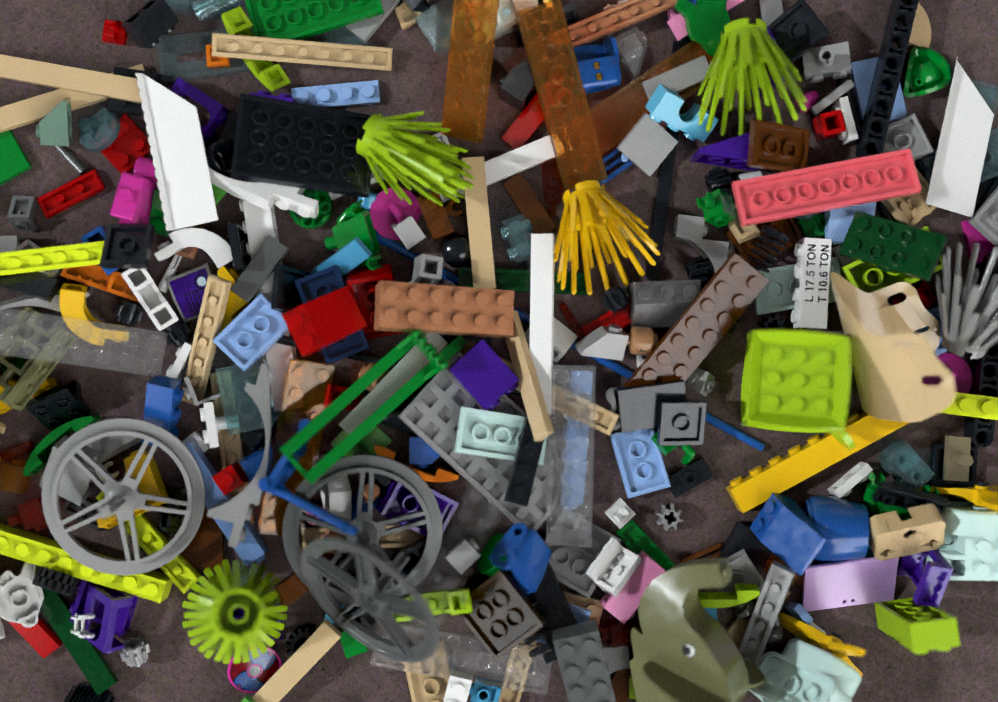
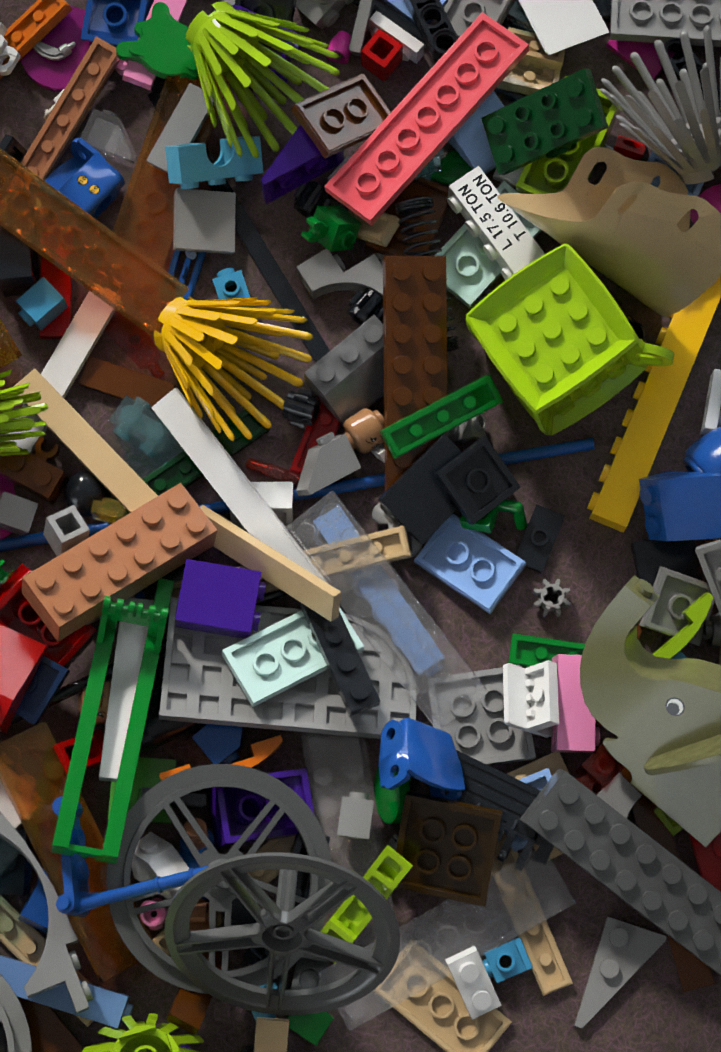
camera: 30 degrees left, 10 degrees down
(230, 478) = (23, 944): red brick -> none
(461, 273) = (107, 510): none -> clear yellow plate
(516, 121) = (41, 304): none -> dark azure brick
(620, 513) = (495, 638): white tile -> none
(632, 188) = (227, 278): none -> dark azure brick
(691, 369) = (441, 416): none -> green tile

